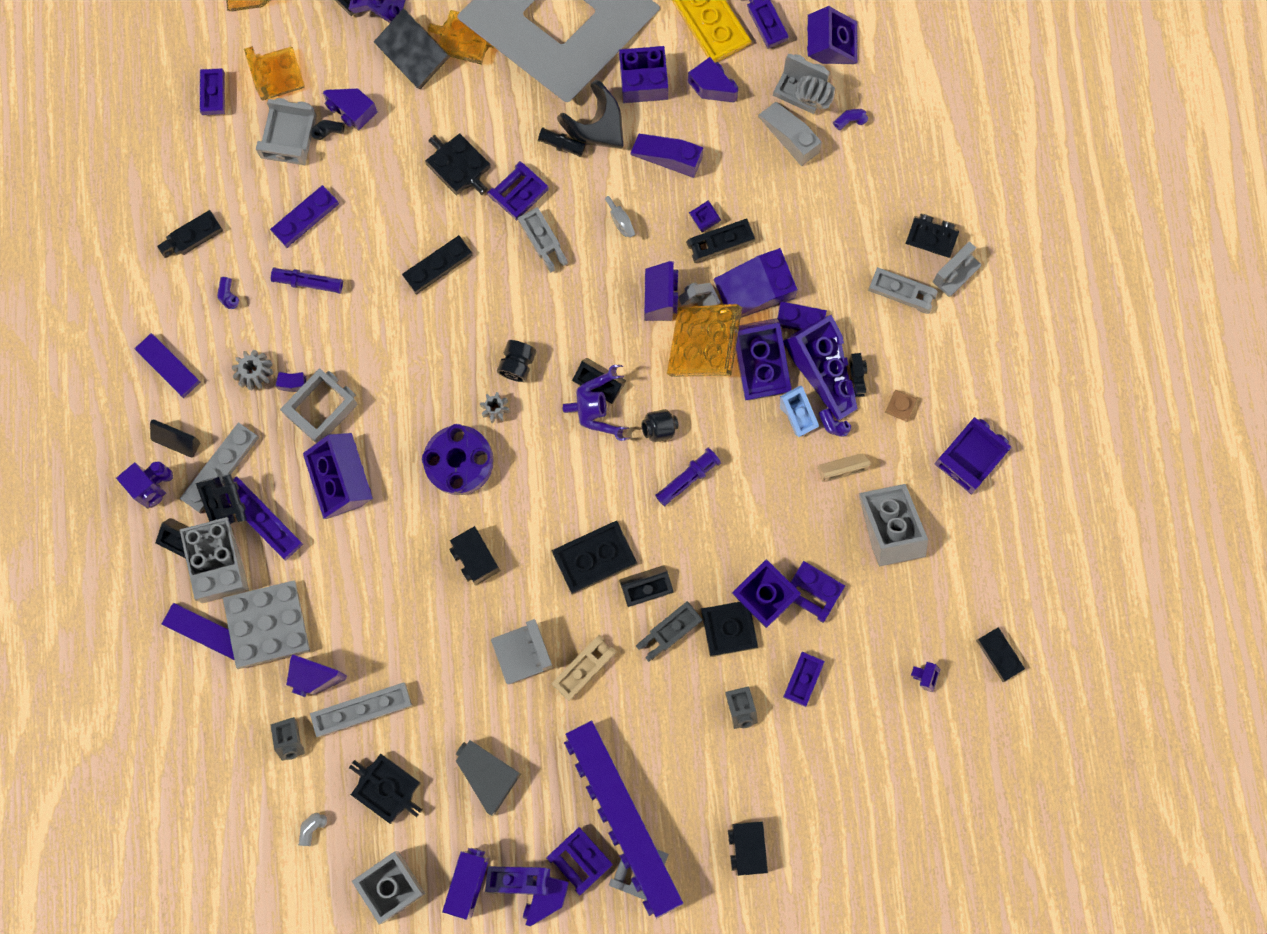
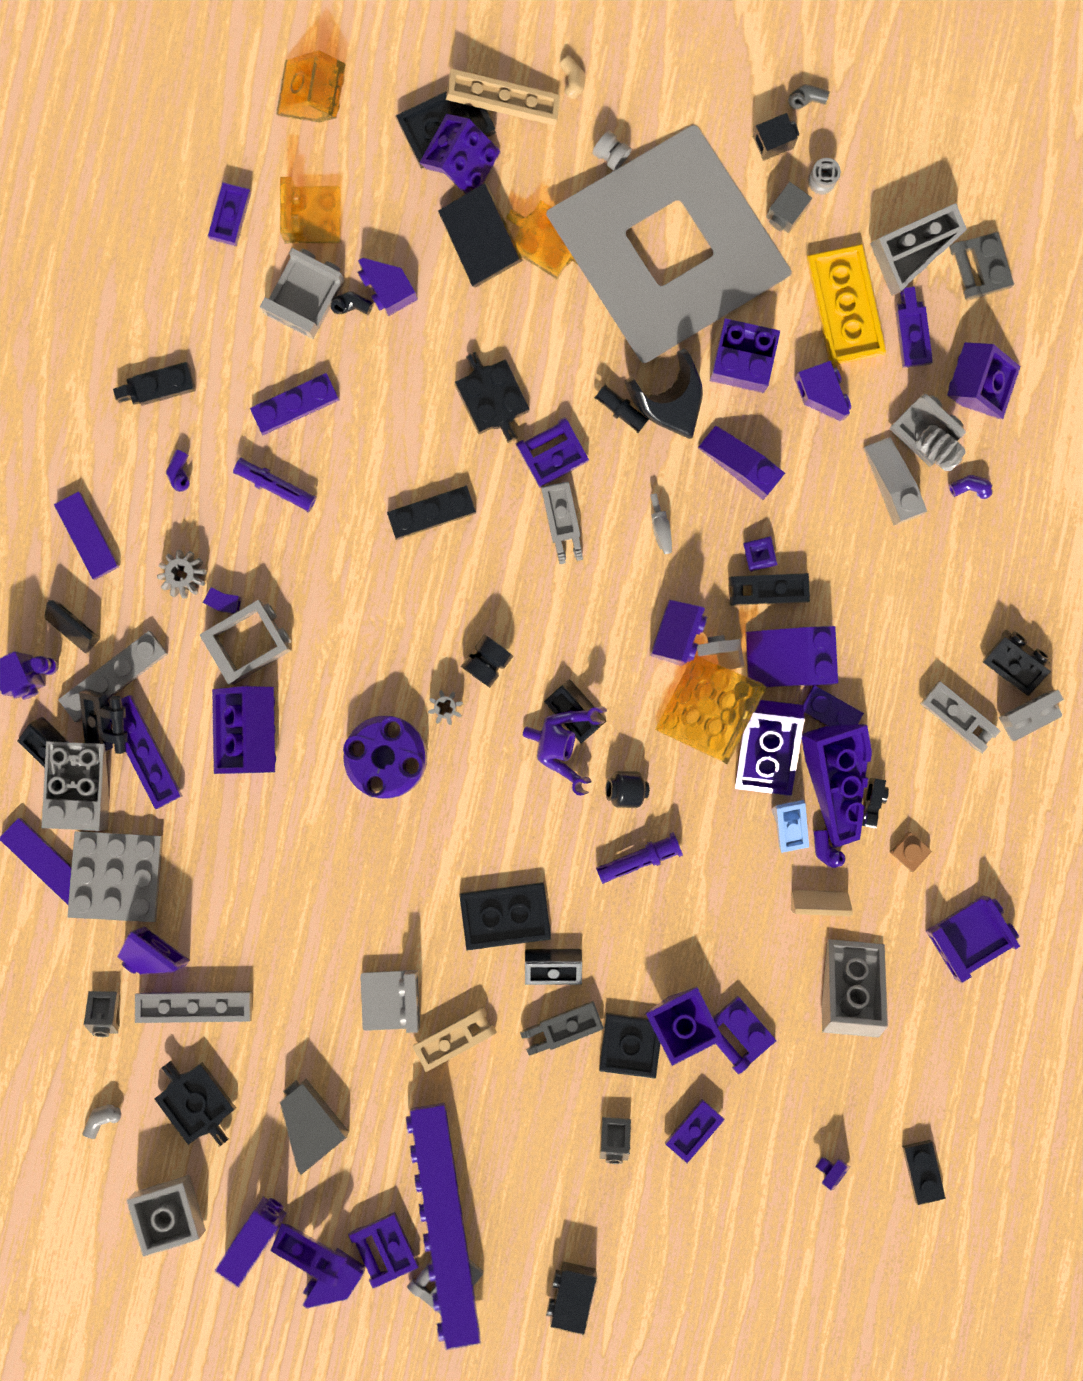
camera: 15 degrees right, 10 degrees up
(474, 555) = (370, 874): black brick -> none

